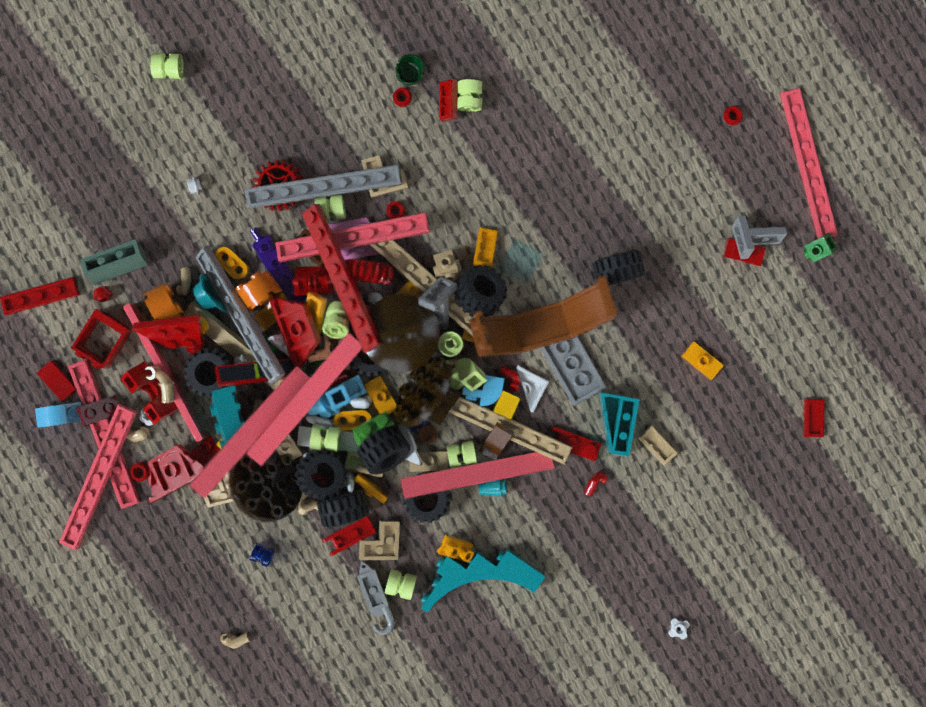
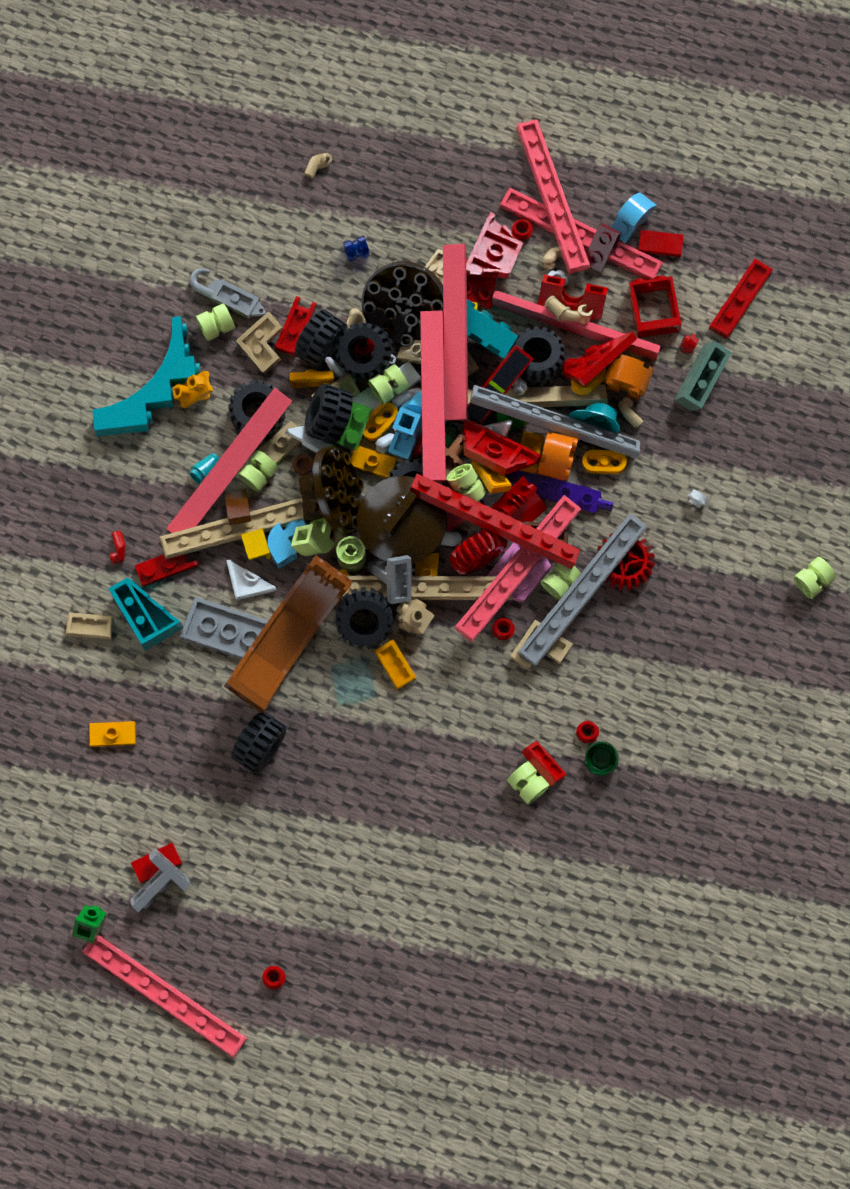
camera: 145 degrees right, 15 degrees down
(513, 378) = (270, 575): red arm -> none

